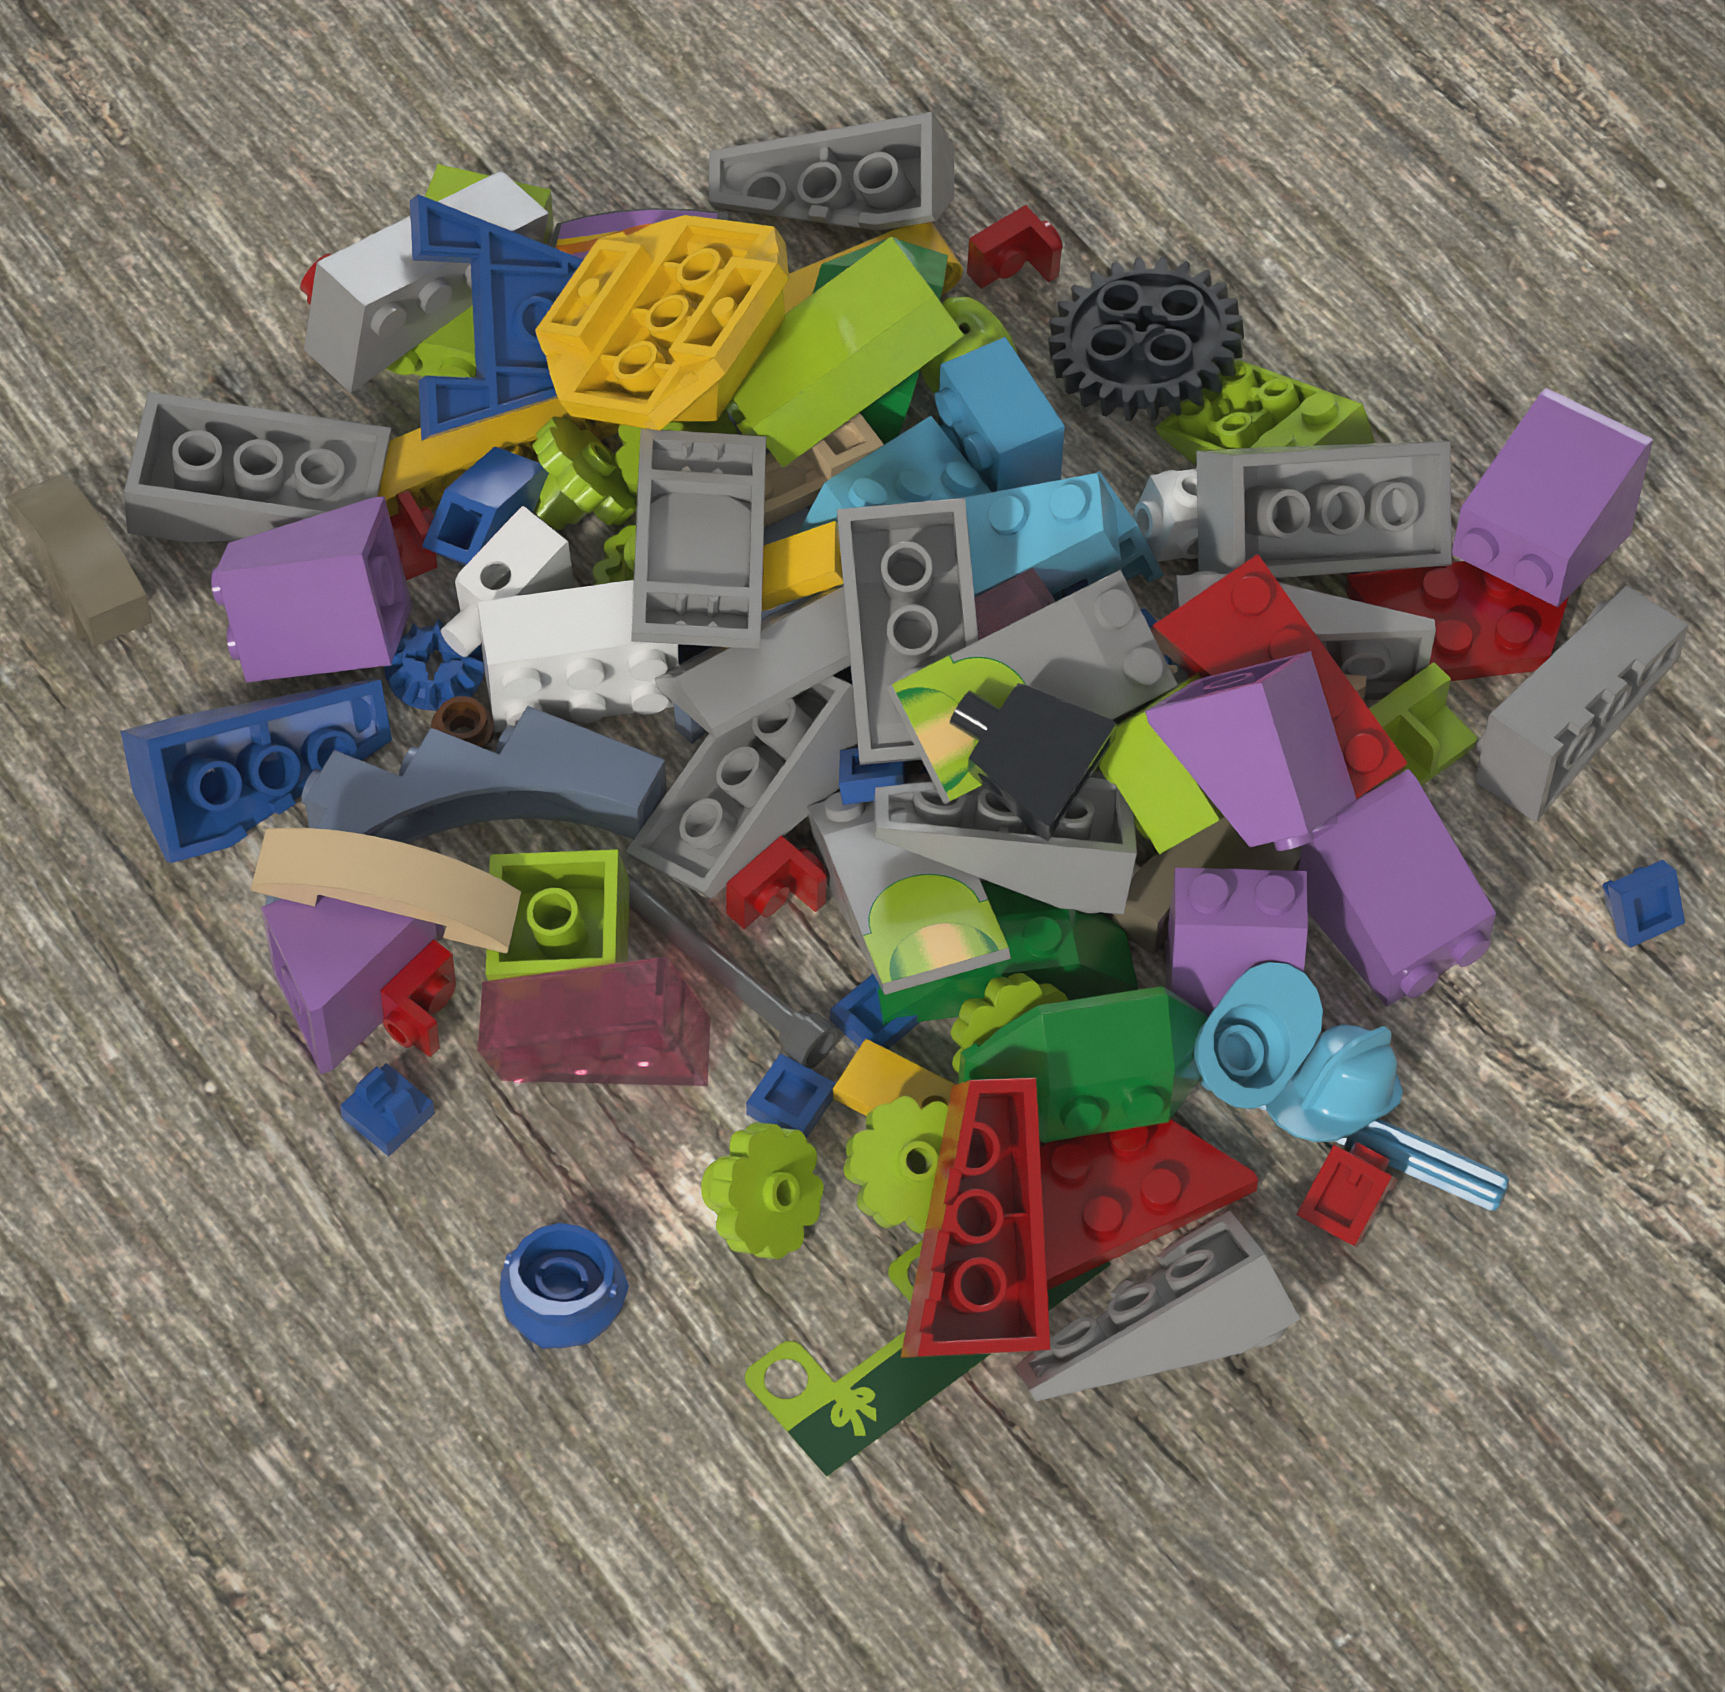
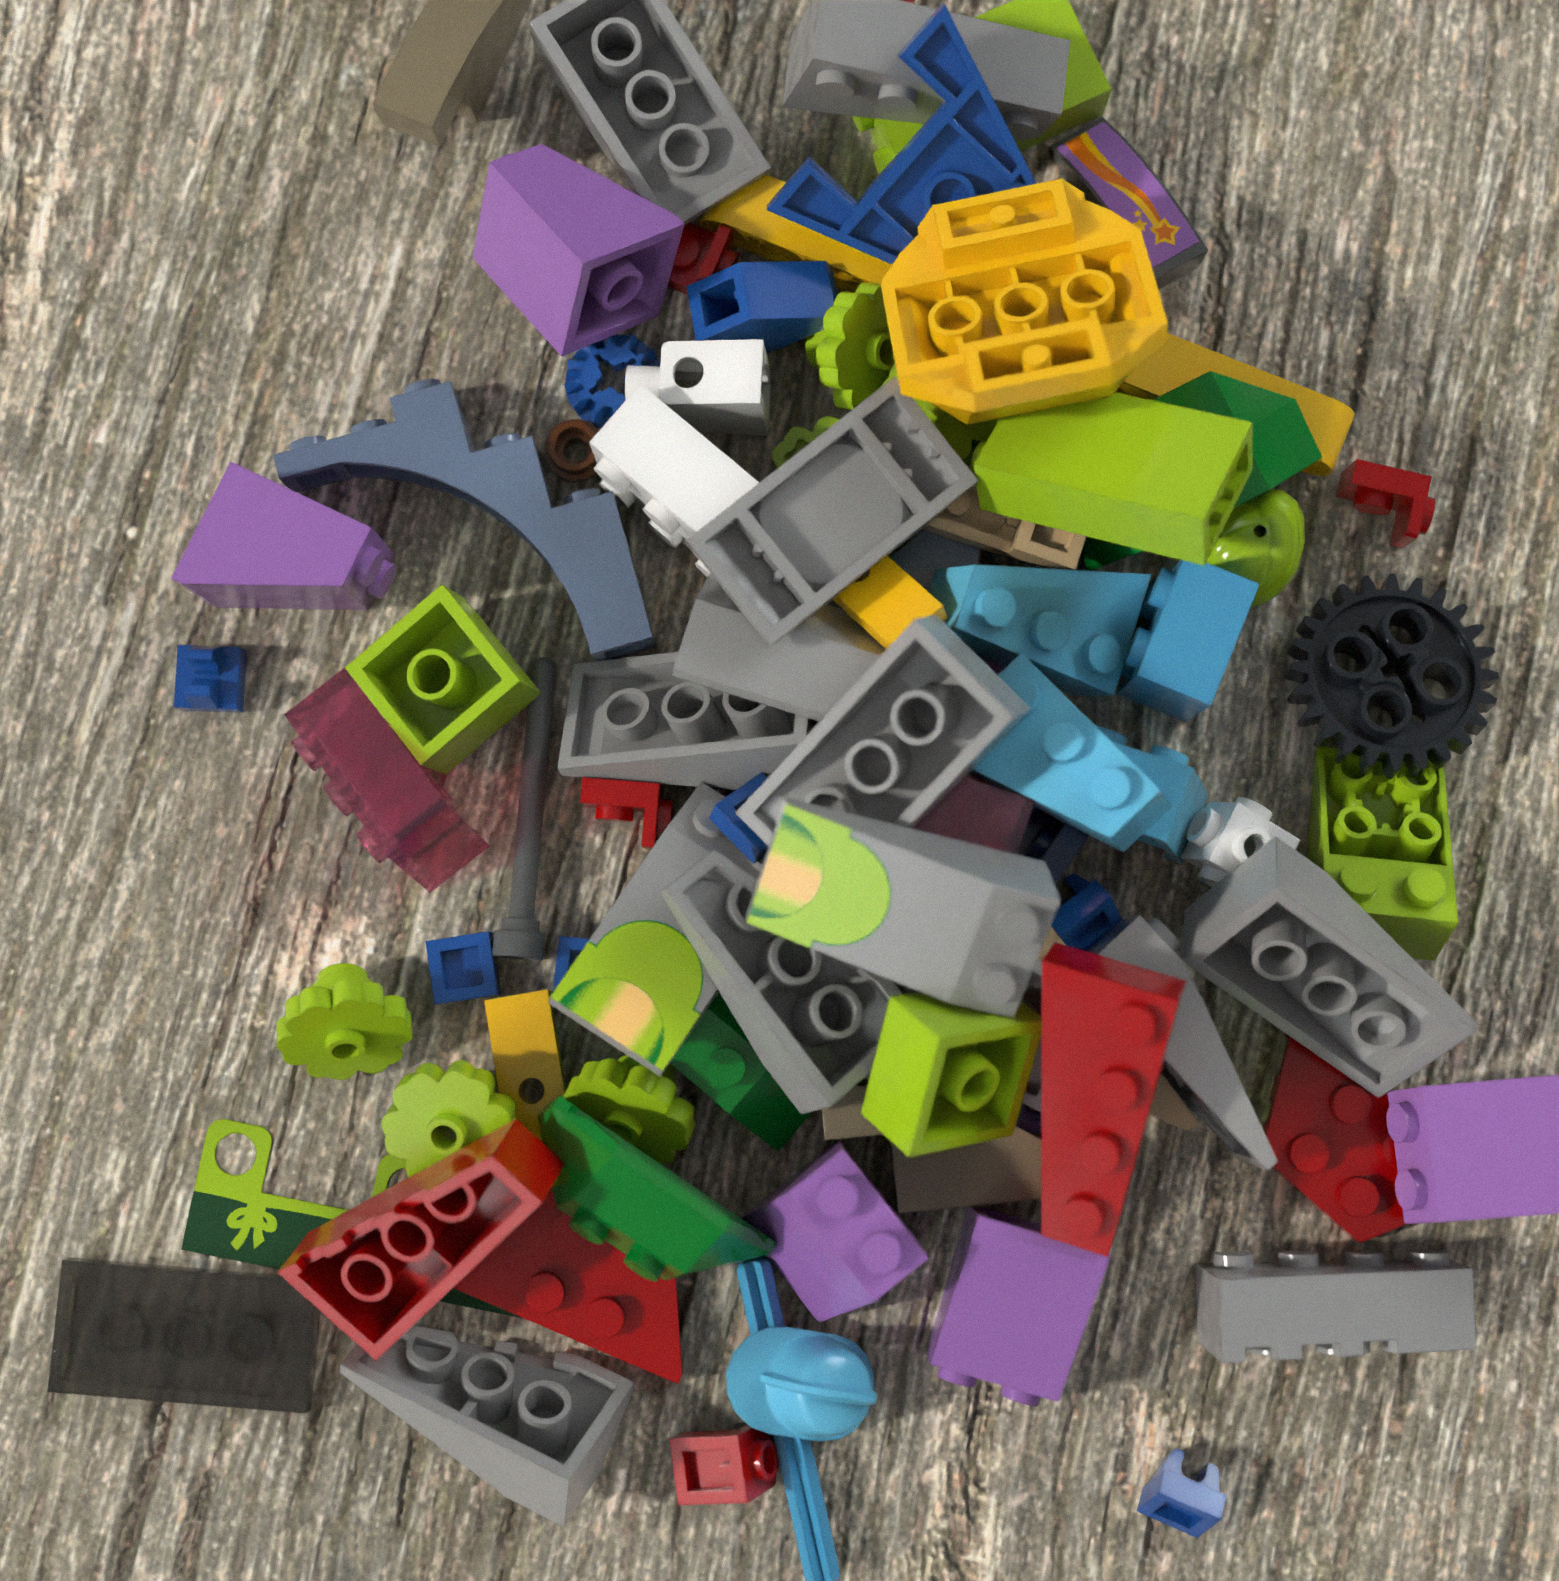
camera: 55 degrees right, 25 degrees up
(233, 766) = (394, 313): blue wedge -> none
(390, 878) = (323, 541): tan slope -> none
(417, 992) = (318, 619): red bracket -> none
(562, 1286) = (169, 931): blue hat -> none
(845, 176) = (1339, 312): light grey wedge -> none
(900, 1517) = (183, 1336): none -> clear smoke tile
(1033, 751) = (824, 970): black torso -> none
(1258, 1035) = (770, 1311): medium azure piece -> none
(1261, 749) = (990, 1144): medium lavender slope -> none
(1423, 725) = (1188, 1191): lime panel -> none

